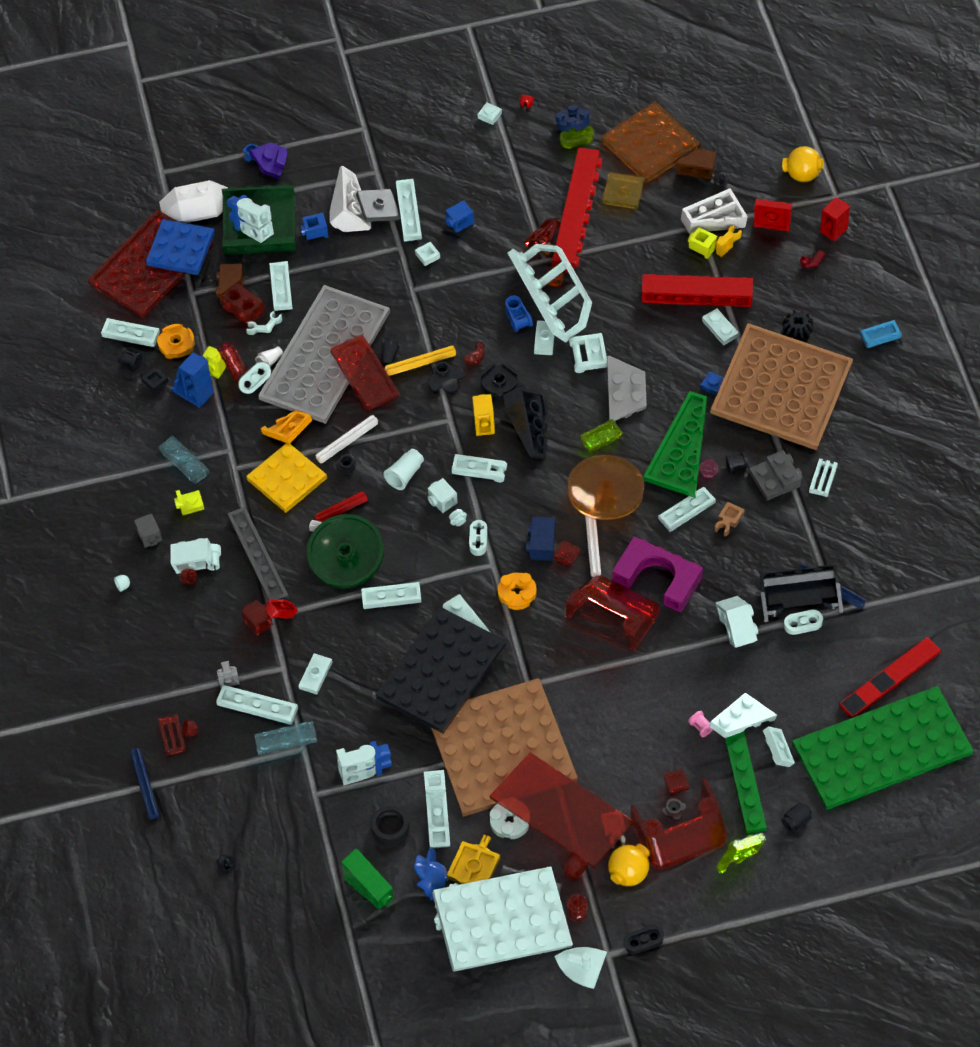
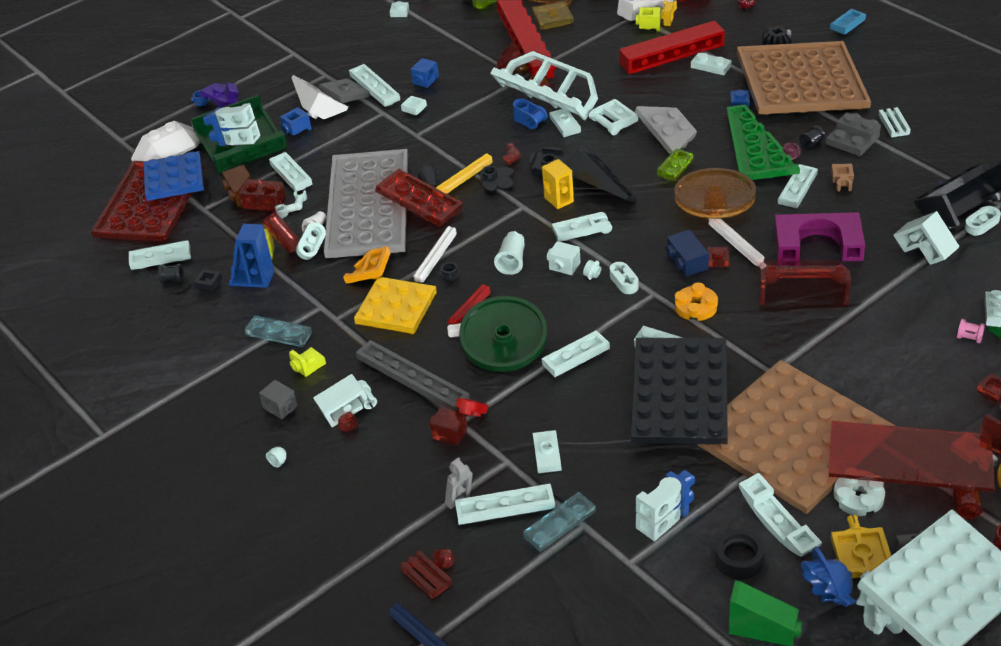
camera: 25 degrees left, 15 degrees down
(179, 349) = (219, 247): light orange plate -> none

